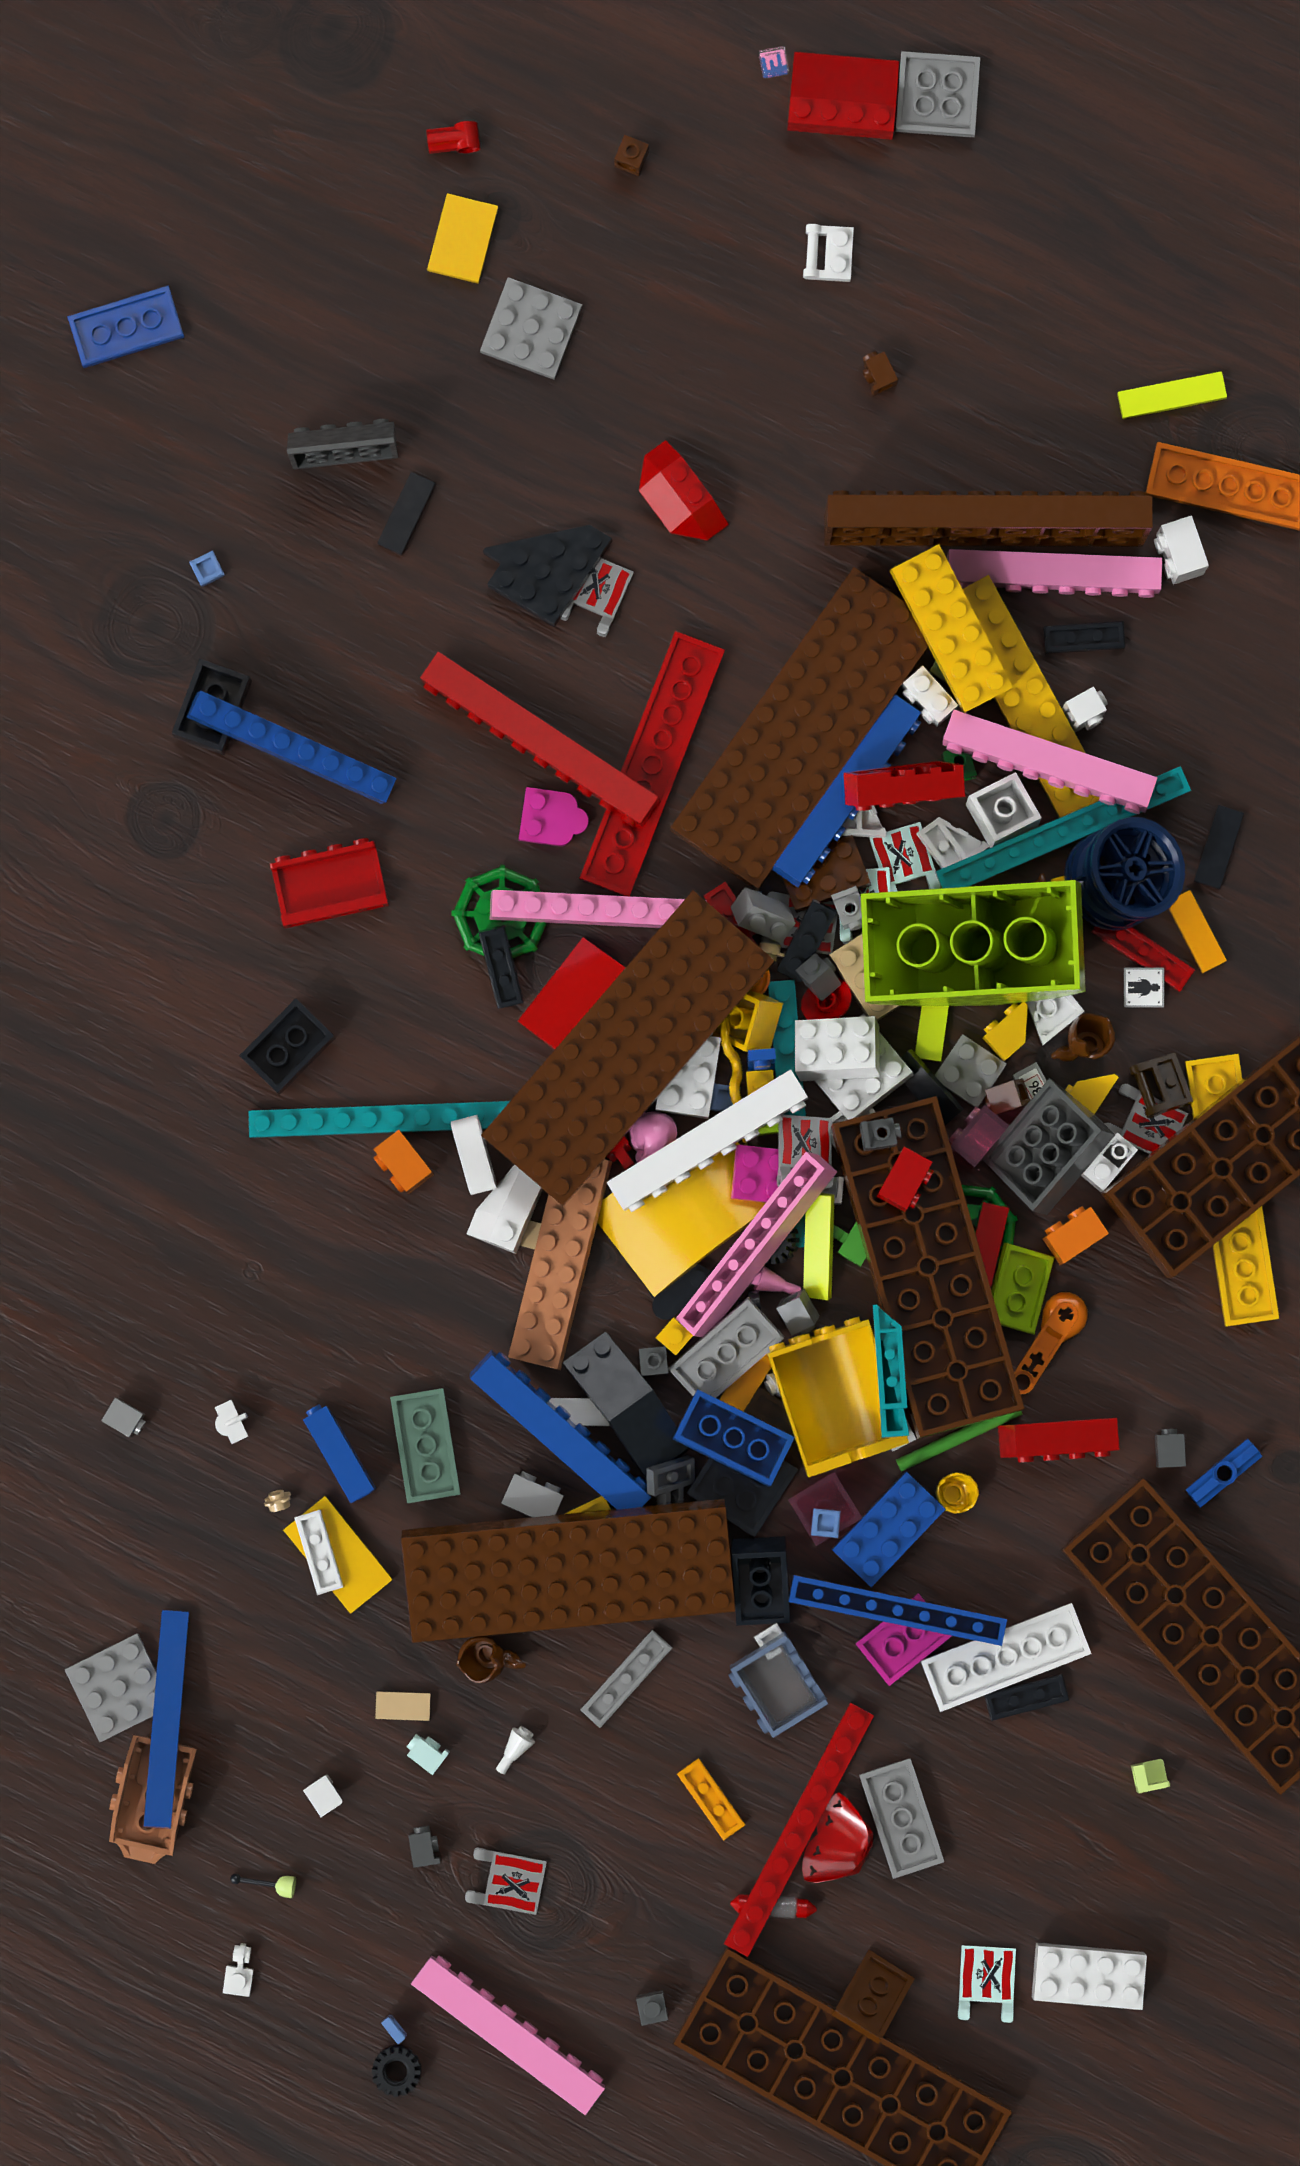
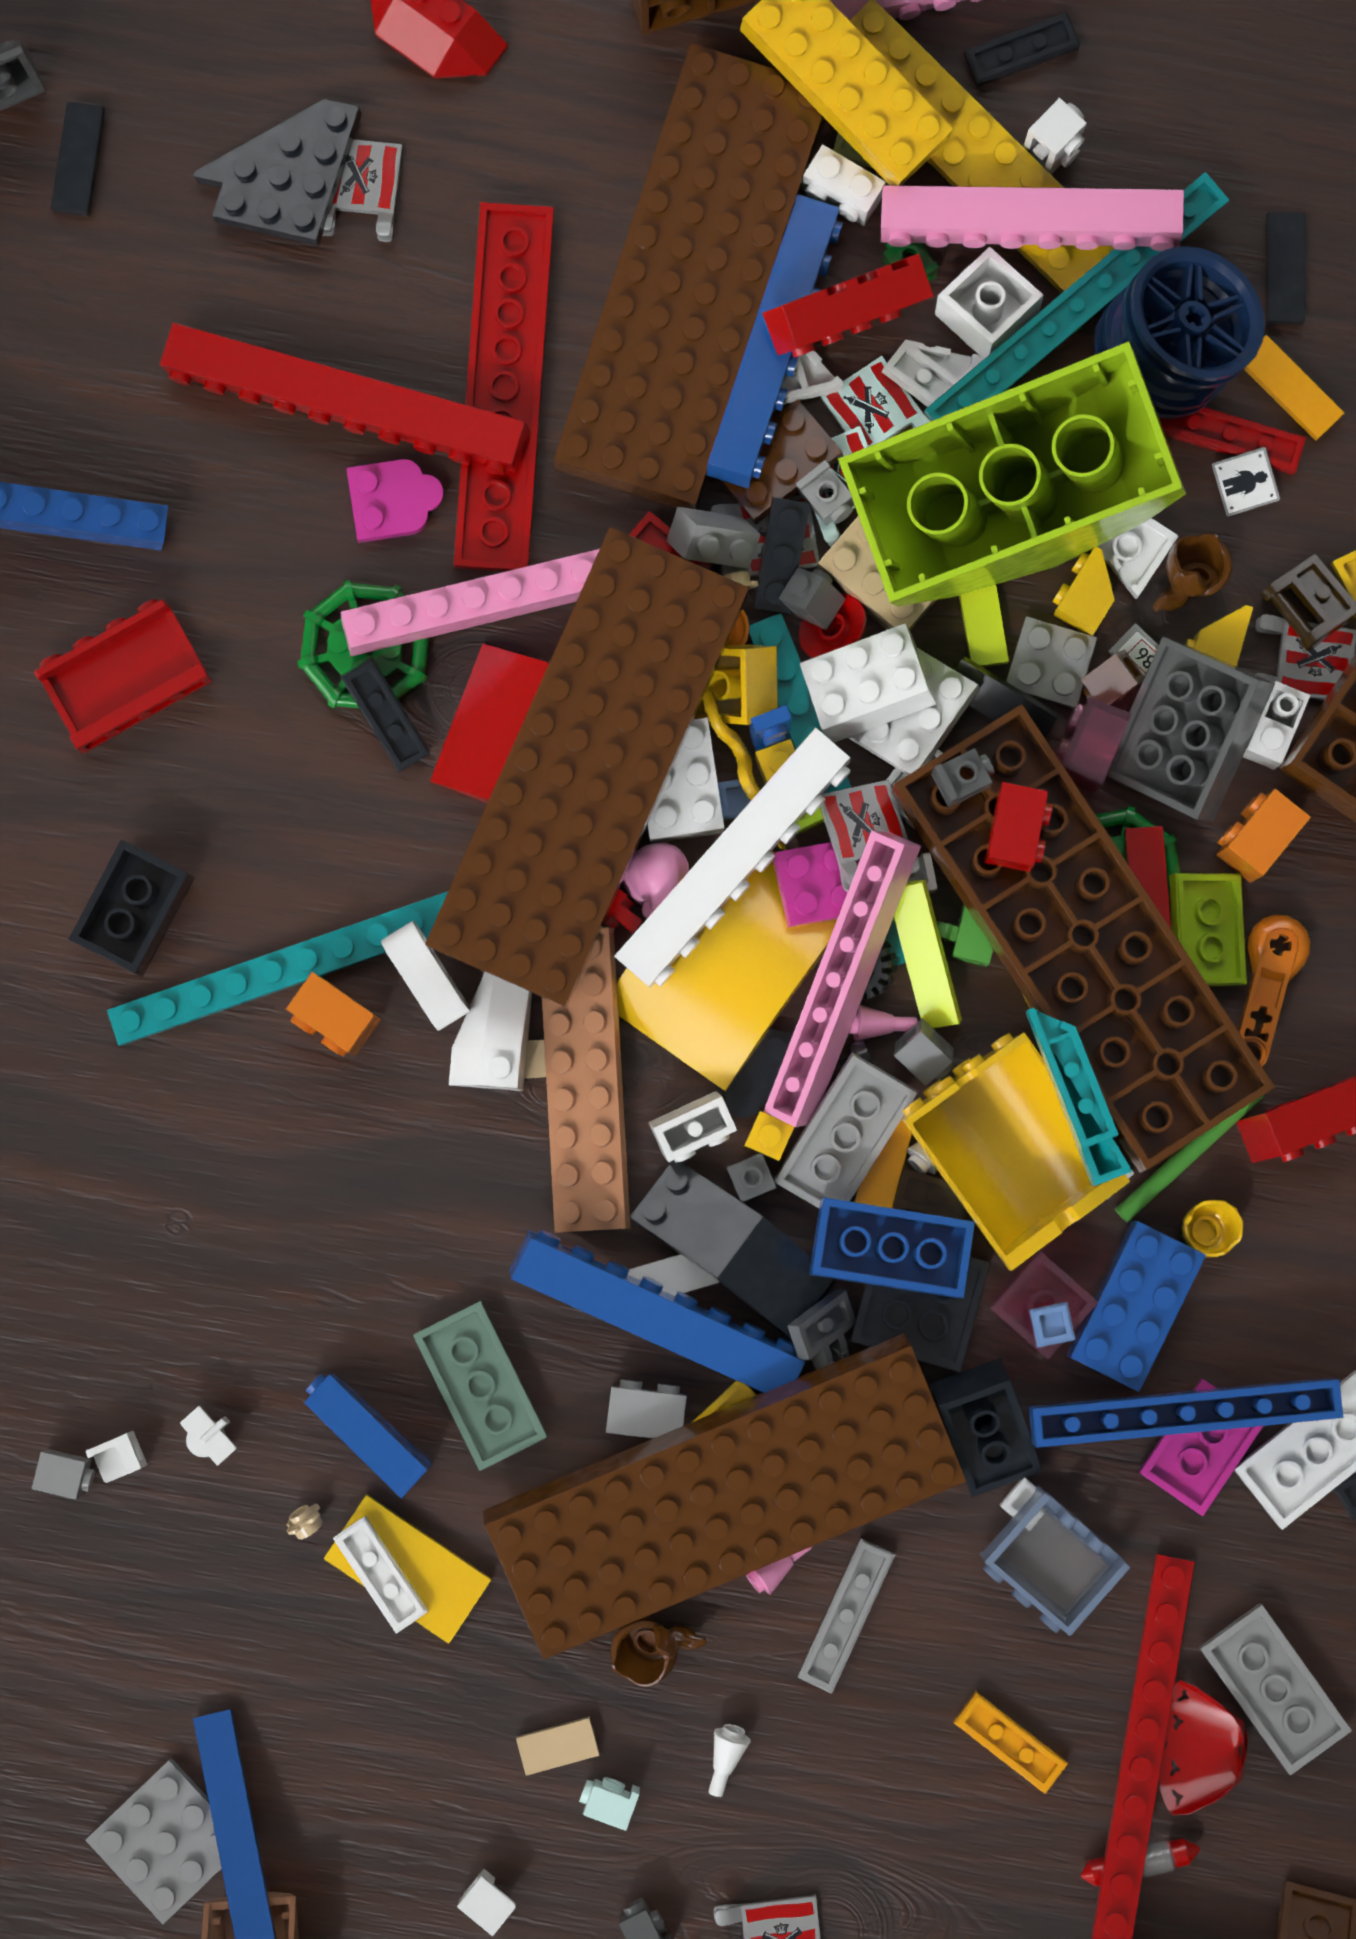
camera: 15 degrees left, 0 degrees up
(164, 1418) = (118, 1457): none -> white panel
(584, 1634) = (770, 1576): none -> bright pink cone
(624, 1314) = (693, 1127): none -> white brick

